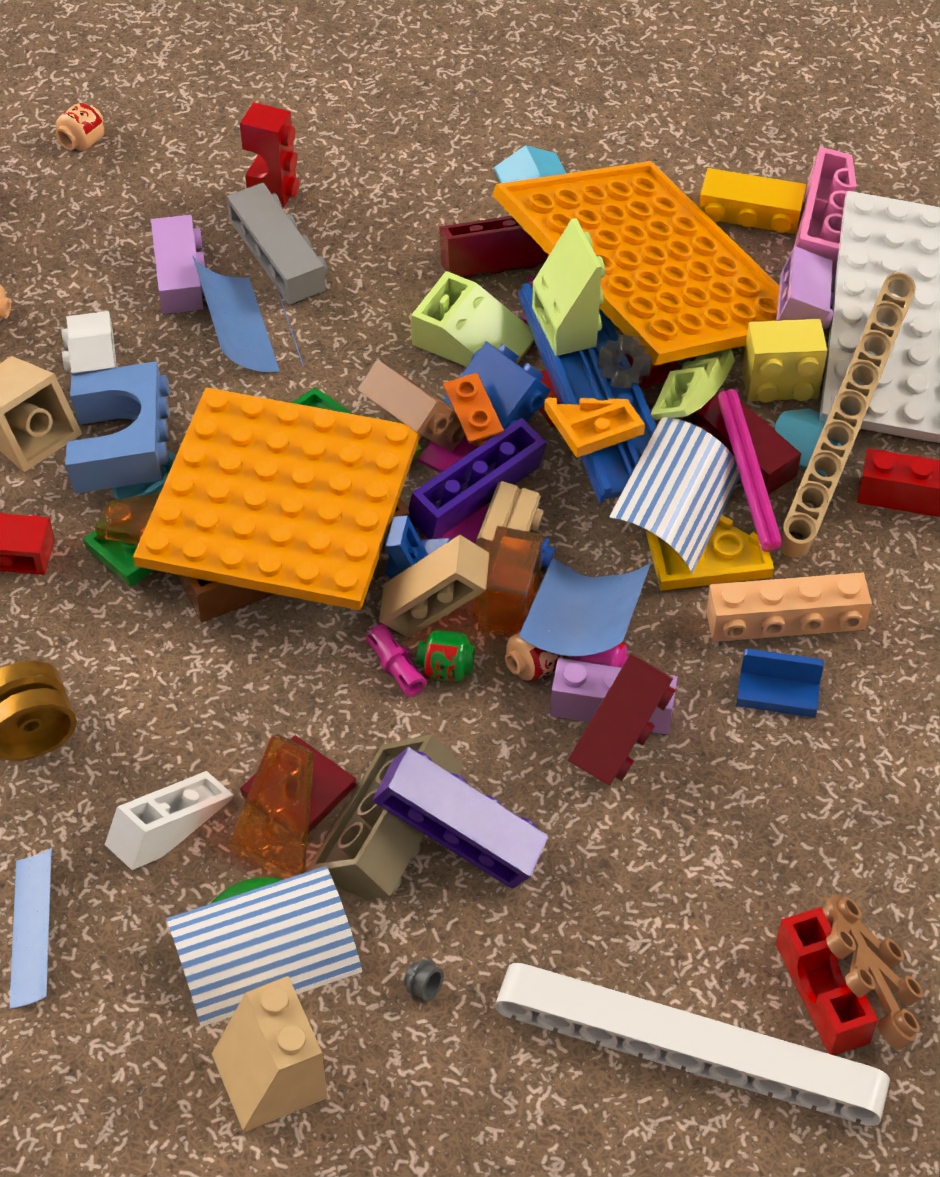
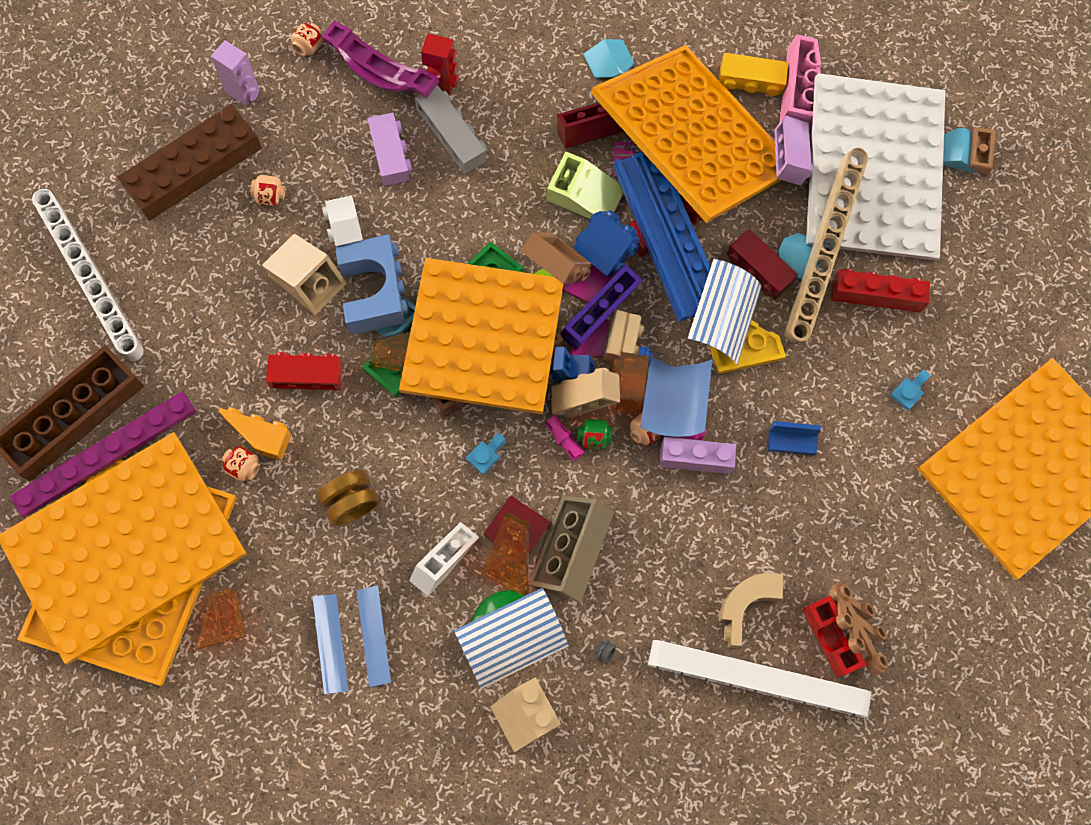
camera: 10 degrees left, 20 degrees up
(173, 161) = (376, 67): none -> magenta piece
(238, 320) = (434, 191): medium blue sticker -> none
(264, 678) = (484, 455): none -> dark azure plate
(460, 818) = (617, 552): brick -> none
(473, 409) = (595, 261): orange hinge -> none
(570, 292) = (651, 176): yellowish green slope -> none
(594, 423) = (673, 270): light orange wing -> none
(610, 358) = (692, 231): clear smoke brick -> none
(622, 720) = (706, 478): dark red brick -> none
(677, 906) = (755, 588): none -> tan arch
(693, 385) = (728, 232): yellowish green slope -> none
(749, 470) = (768, 291): dark pink axle -> none
(784, 360) = (783, 204): light yellow brick -> none
(788, 607) = (796, 384): light nougat brick -> none

